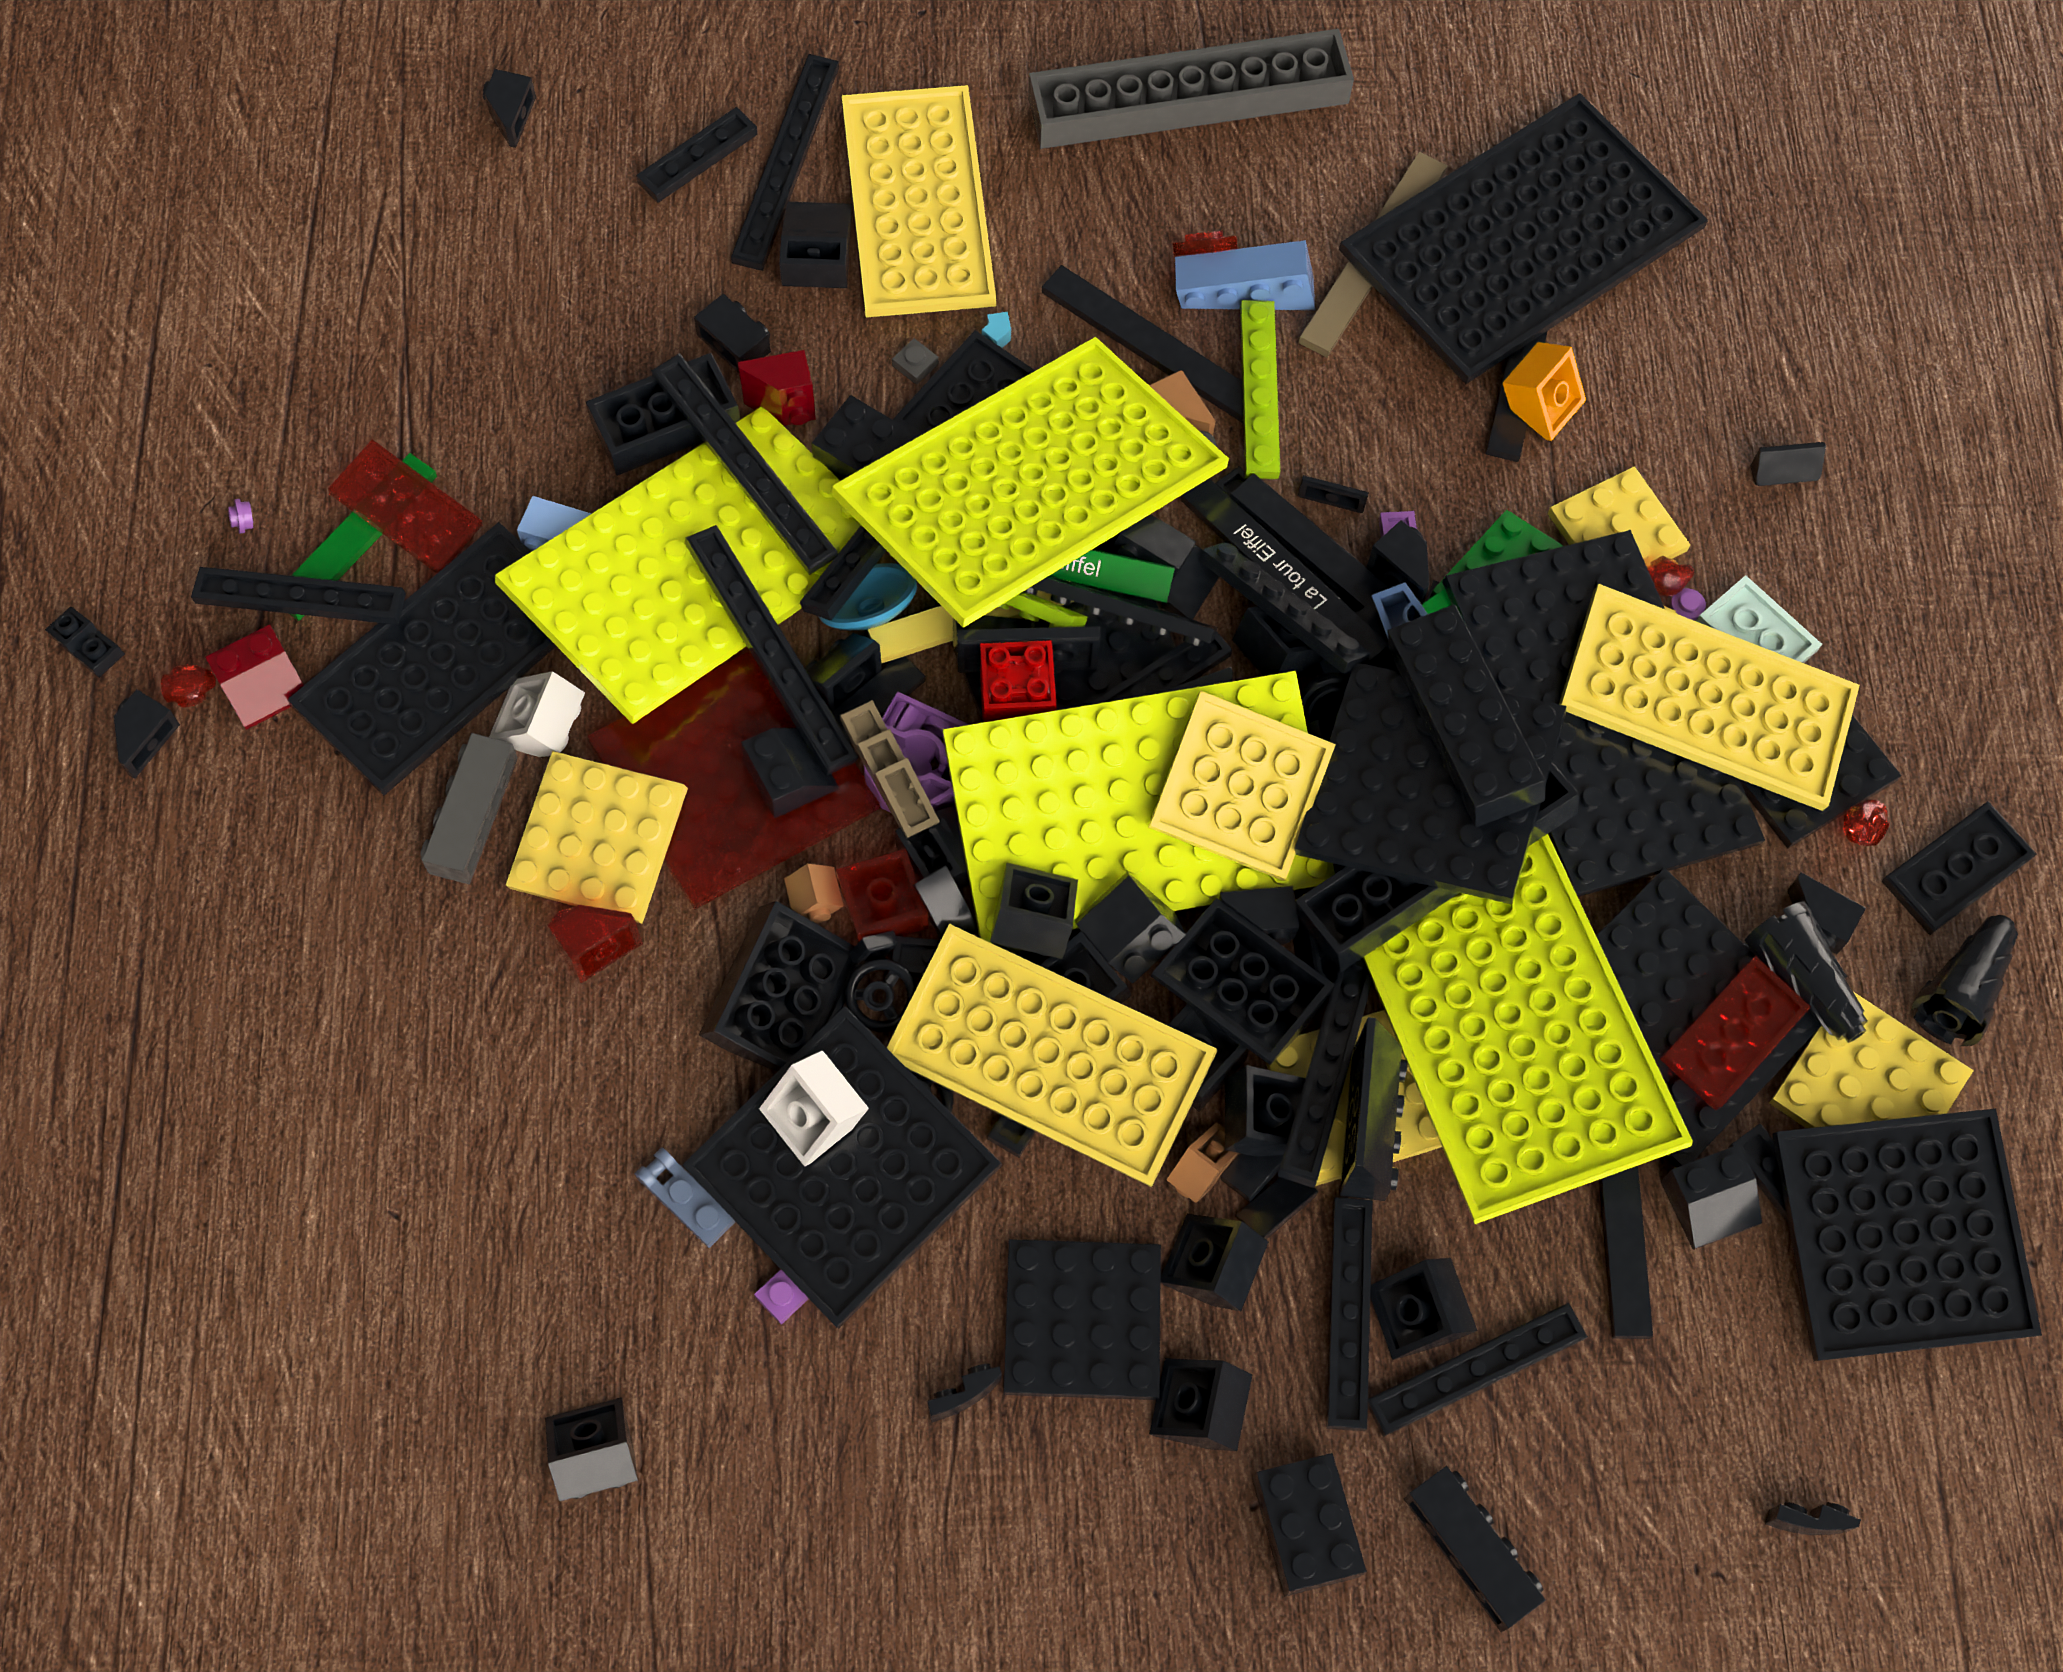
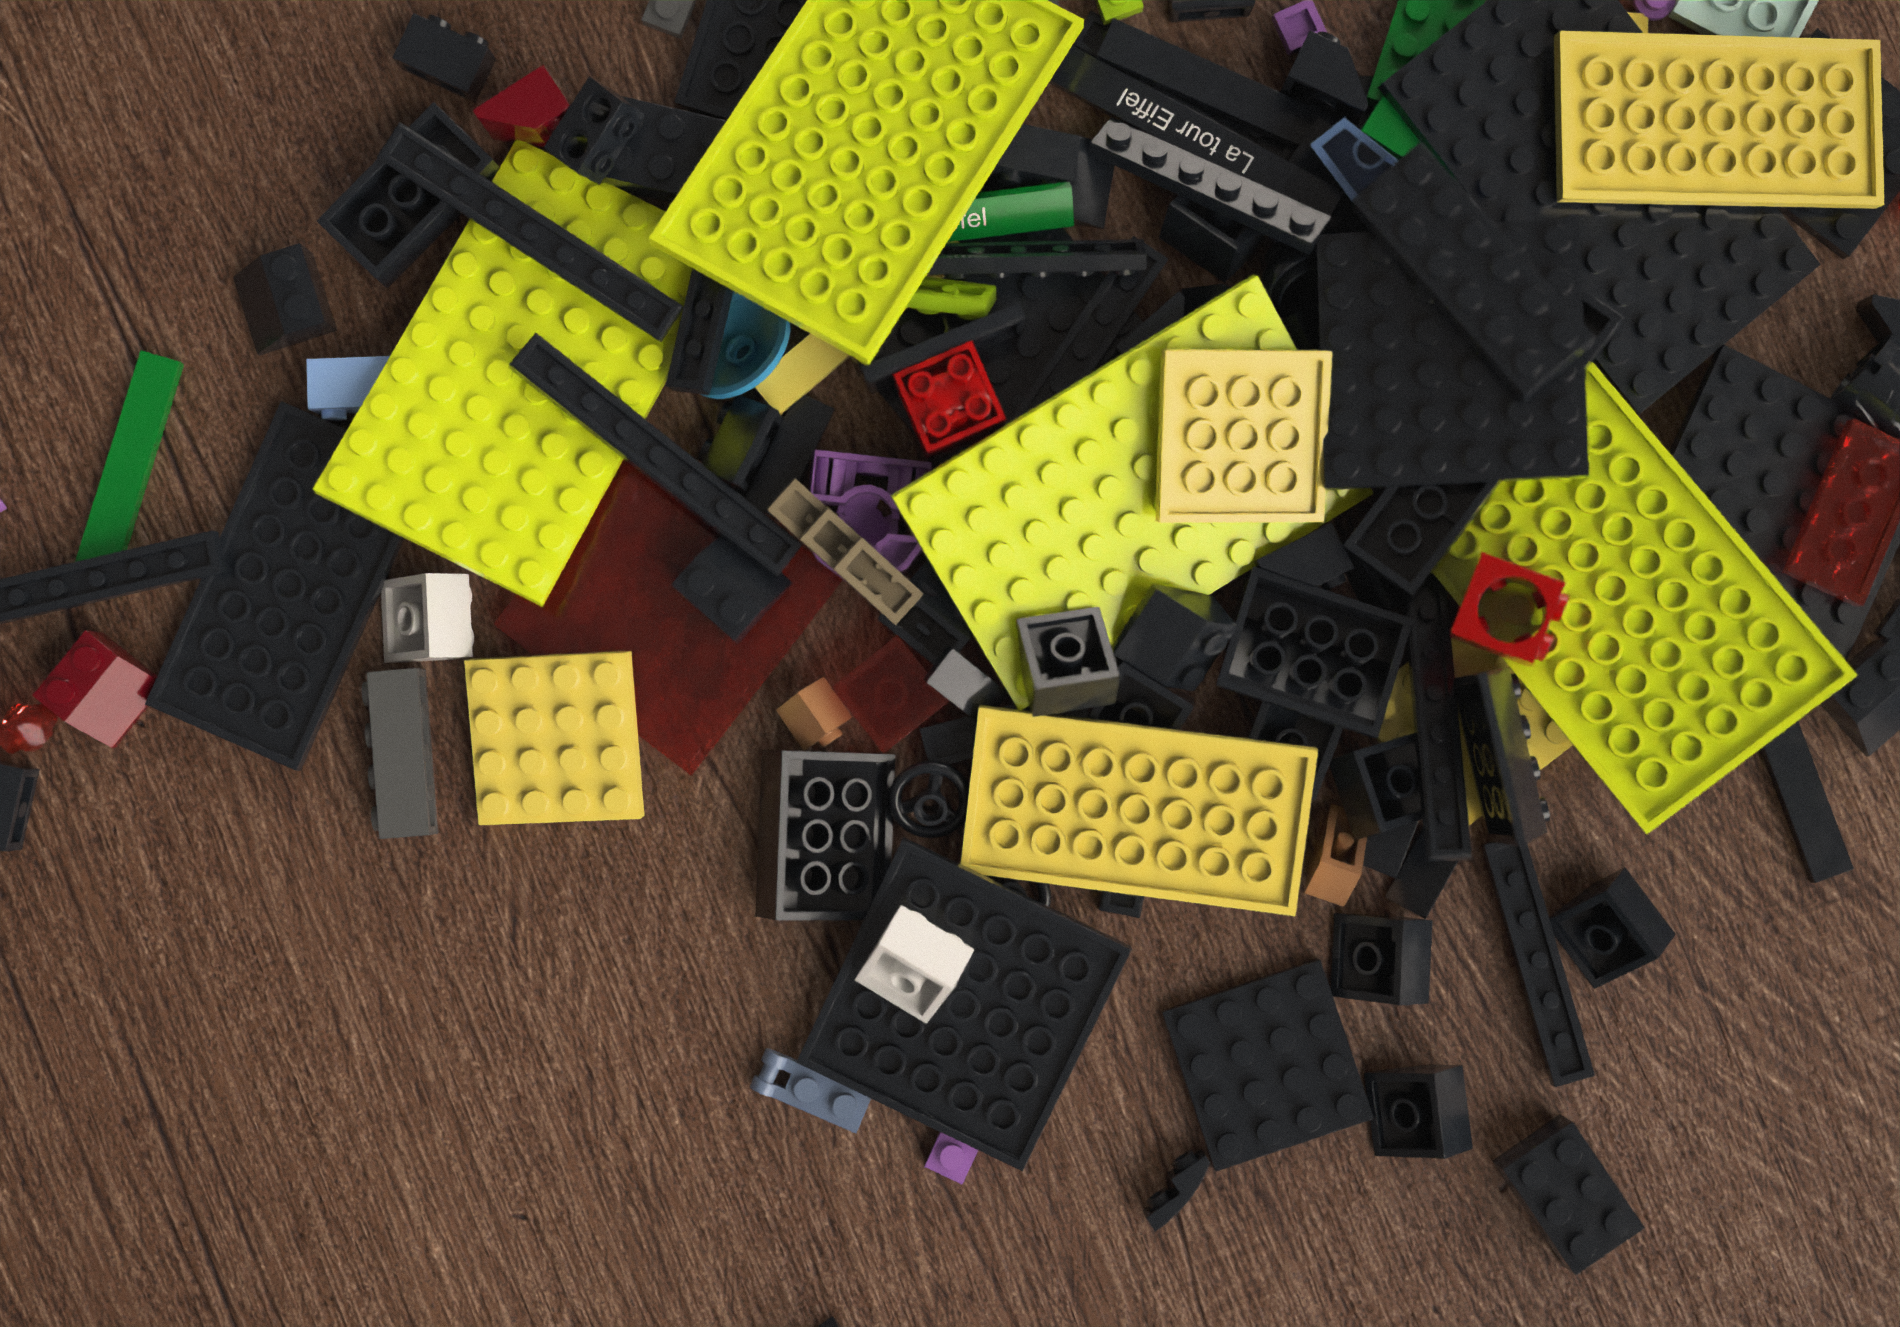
camera: 15 degrees left, 20 degrees up
(405, 506) = (167, 423): clear red plate -> none
(535, 454) = (284, 299): none -> black slope
(593, 938) = (596, 862): clear red slope -> none
(823, 408) = (594, 130): none -> black brick
(873, 947) = (903, 752): black tile -> none
(1413, 963) = (1494, 575): none -> red brick
(1475, 1549) = (1739, 1155): black brick -> none
(1476, 1369) = (1683, 967): black tile -> none

